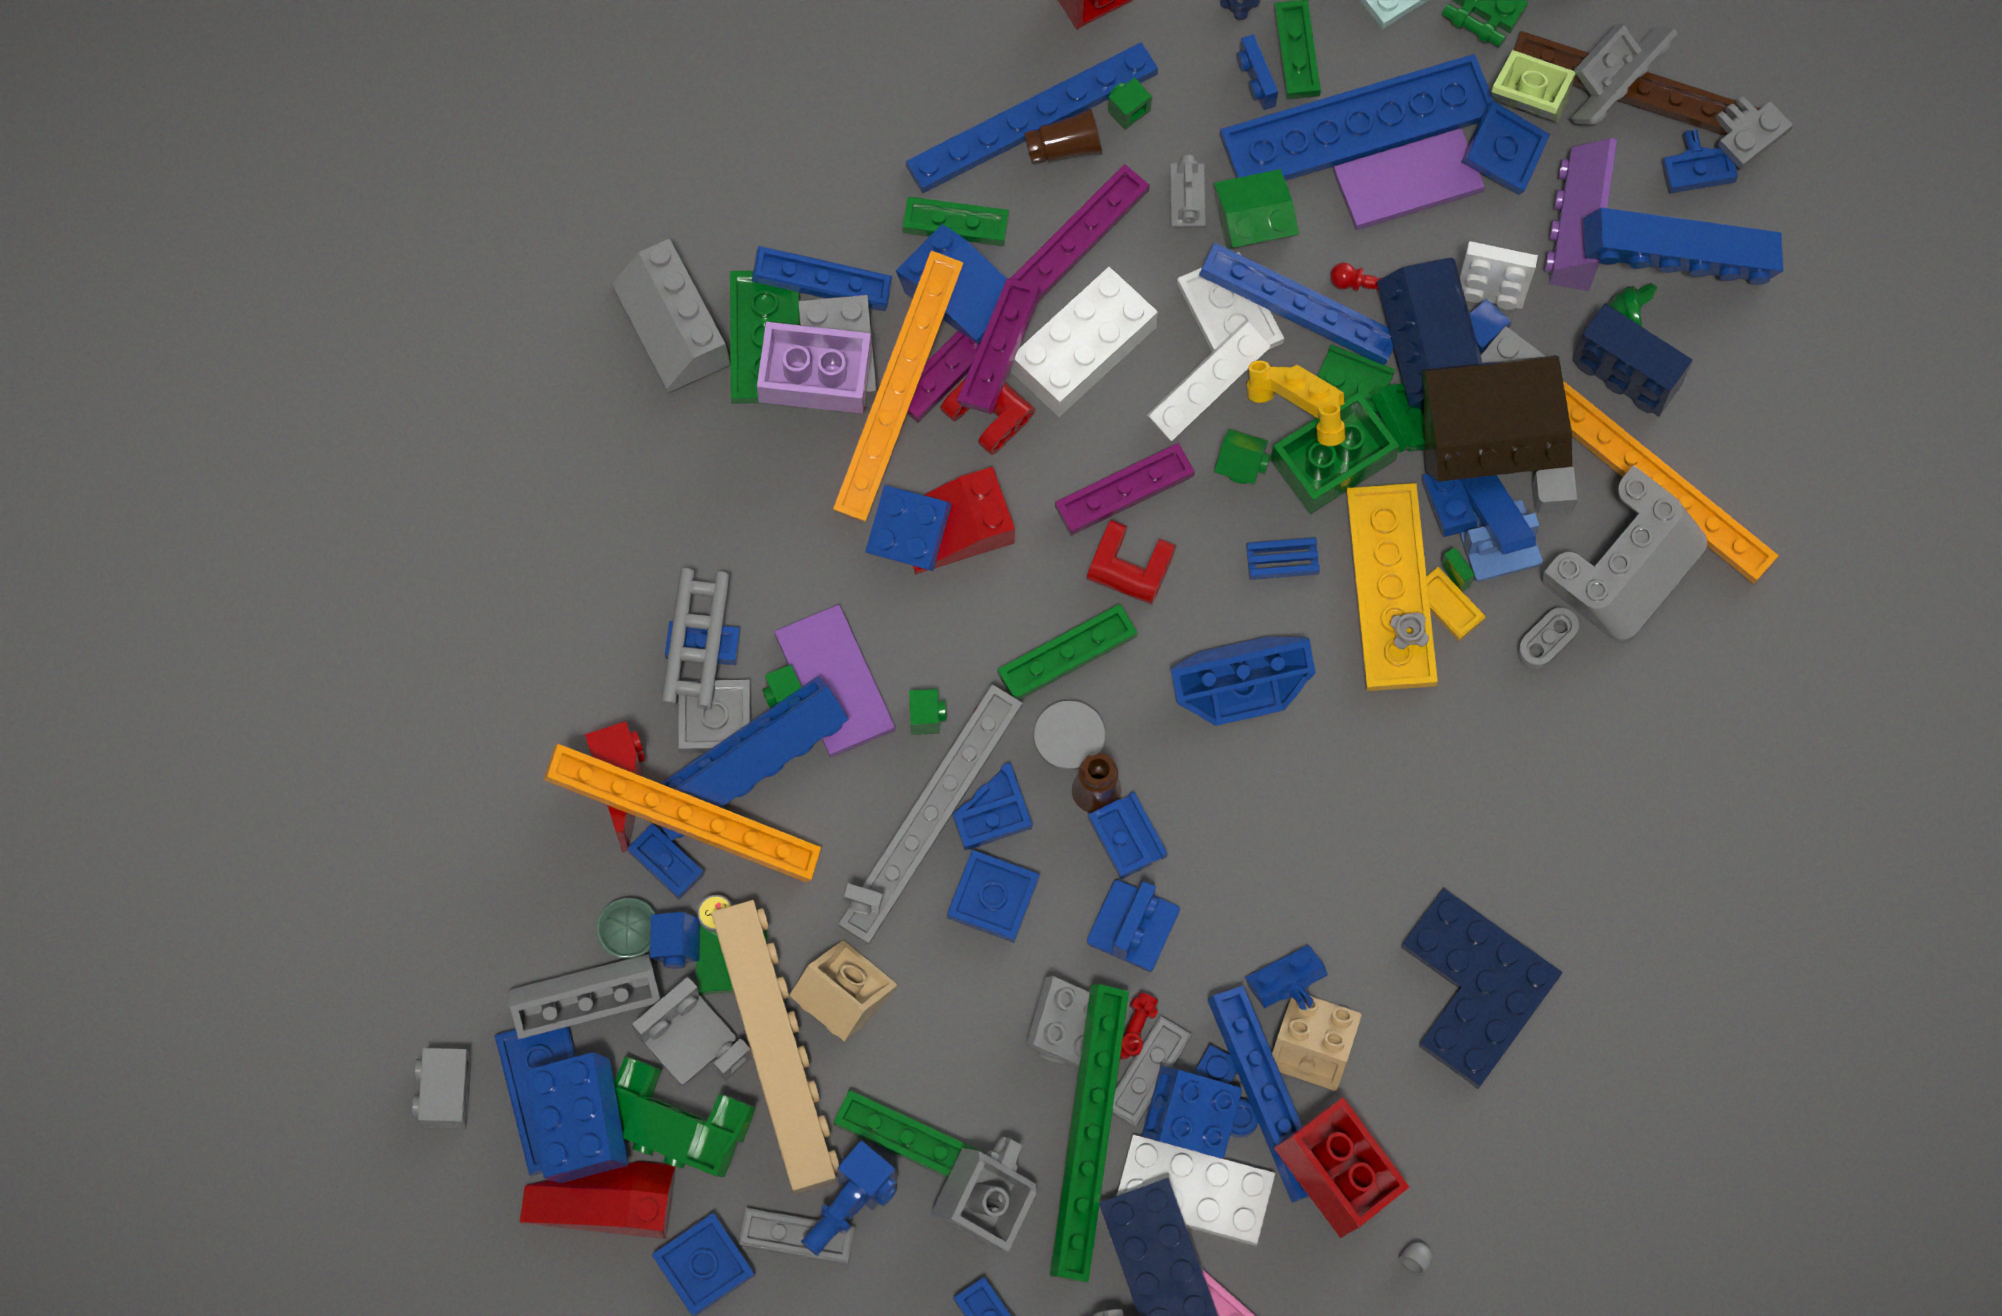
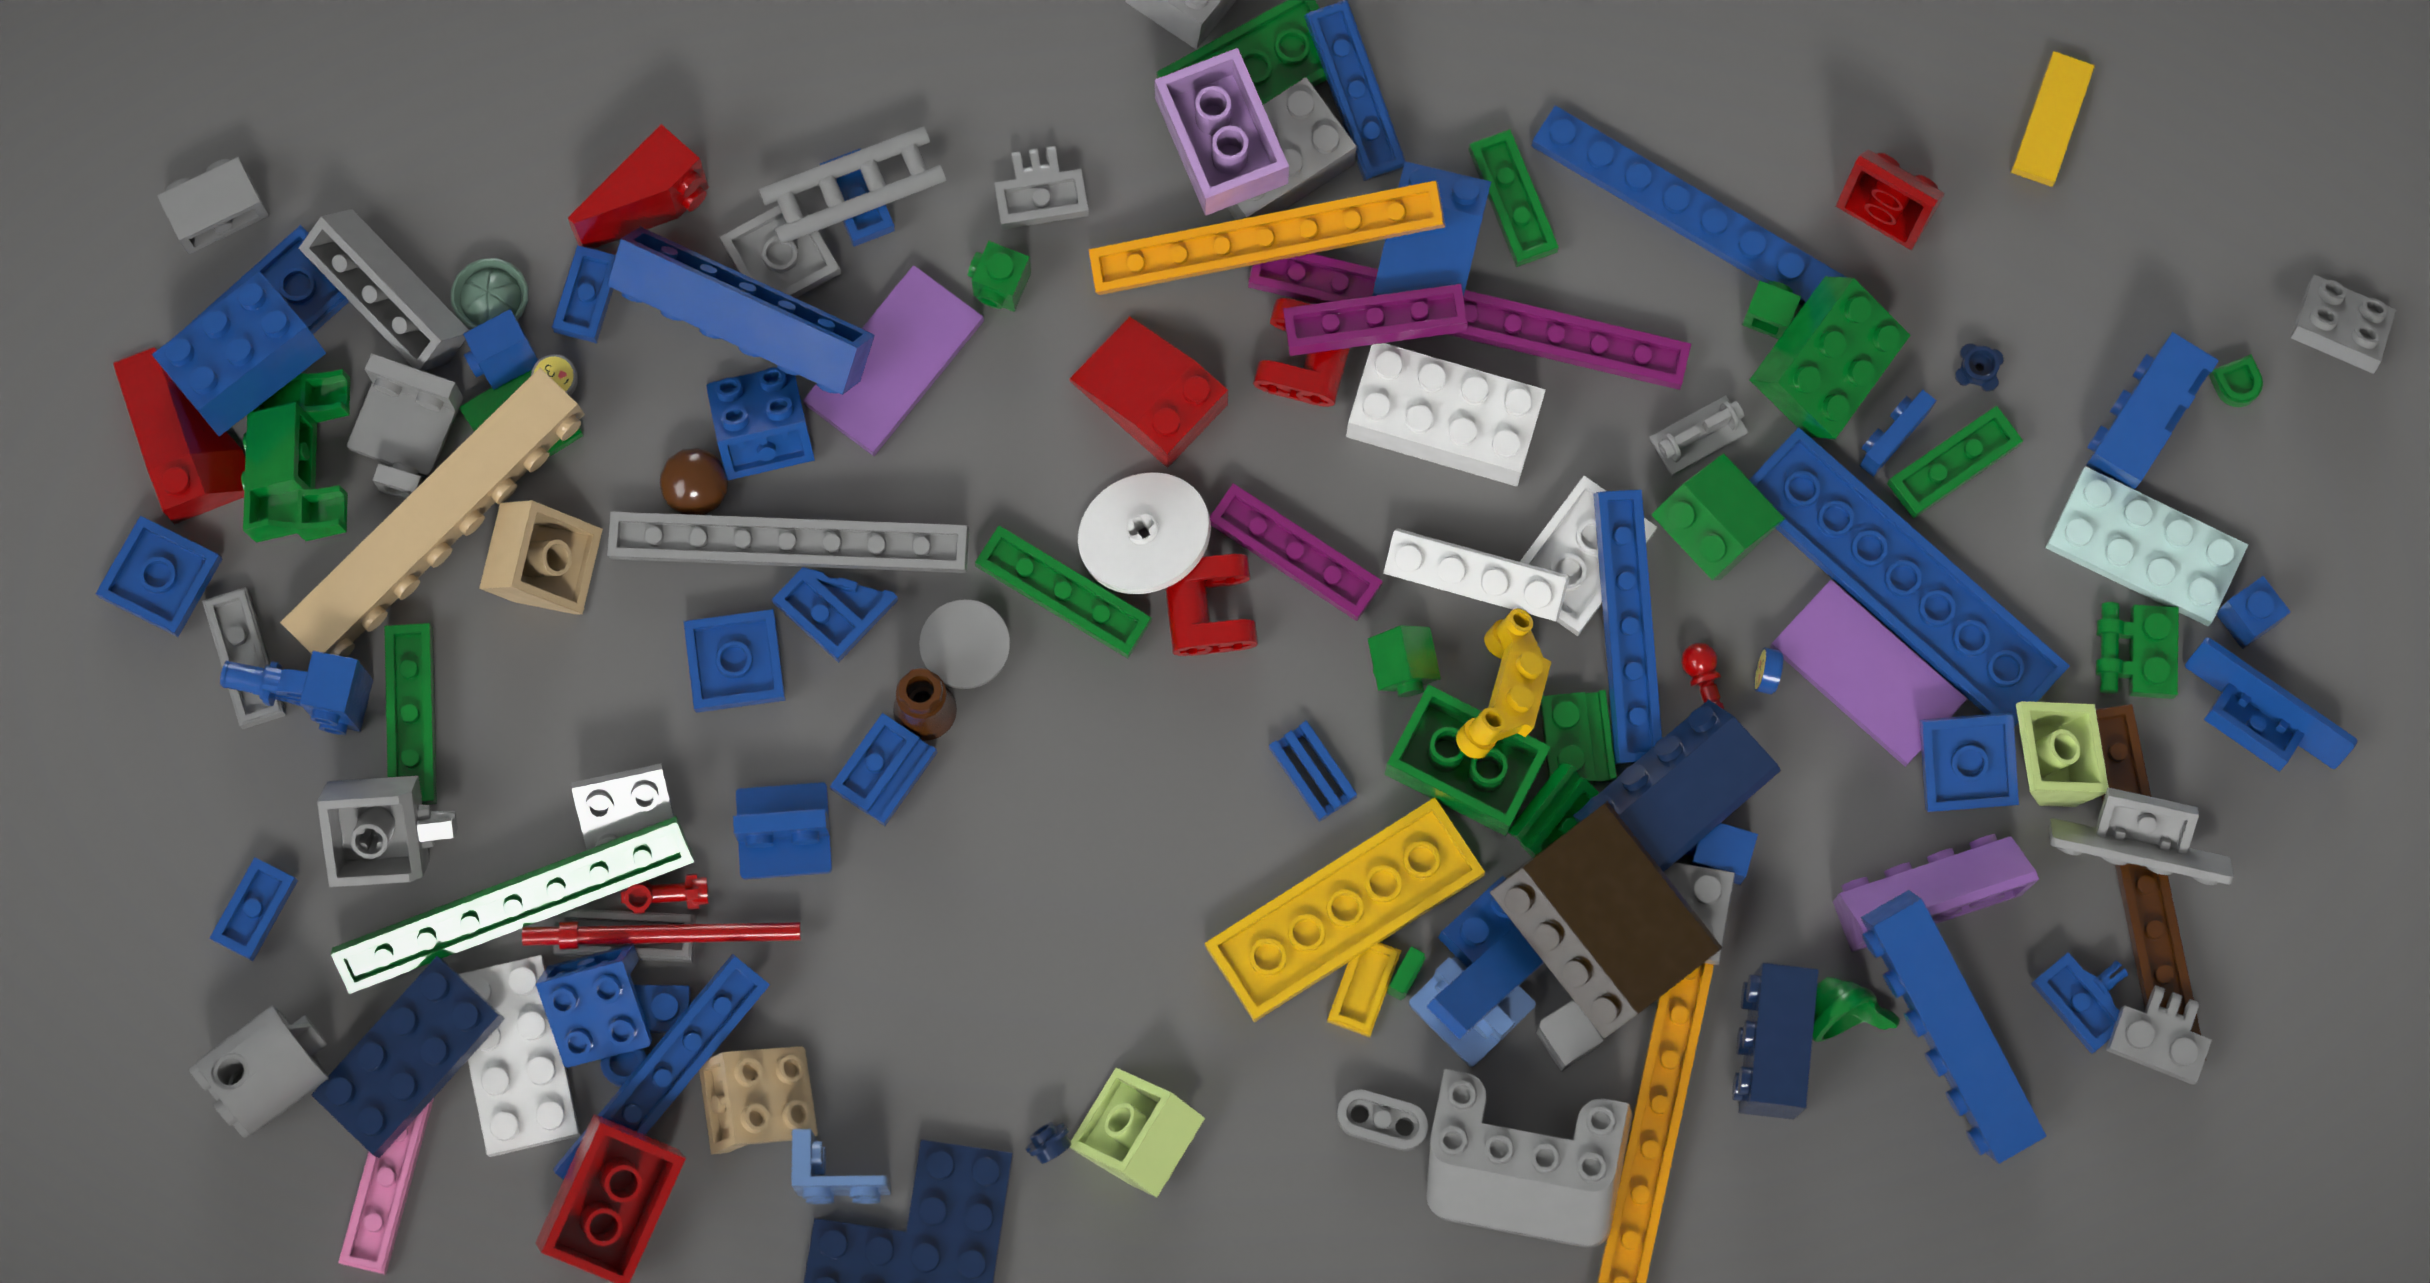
camera: 60 degrees right, 5 degrees up
(681, 813) = (629, 274): light orange plate -> none
(770, 520) = (1040, 192): none -> light grey hinge
(780, 685) = (849, 304): green plate -> none
(818, 576) = (999, 276): none -> green brick
(828, 790) = (759, 422): none -> blue bracket
(845, 859) = (693, 482): none -> reddish brown hair
(862, 899) = (643, 519): light grey plate -> none
(908, 527) = (1110, 341): blue plate -> none
(926, 711) = (907, 475): green plate -> none
(1064, 139) = (1683, 262): reddish brown plant -> none
(1075, 595) = (1176, 525): none -> white piece
(1133, 1103) = (571, 935): none -> red bar
(1187, 81) = (1830, 357): none -> green brick
(1243, 678) = (1134, 795): blue wedge -> none
(1288, 978) = (810, 1032): blue plate -> none
(1375, 237) = (1768, 671): none -> blue tile
(1386, 1025) = (810, 1161): none -> medium blue bracket
(1416, 623) = (1294, 968): light grey plate -> none
(1450, 860) = (1048, 1142): none -> dark blue plate
(1472, 799) = (1137, 1131): none -> yellowish green slope
(1497, 275) = (1786, 827): white plate -> none

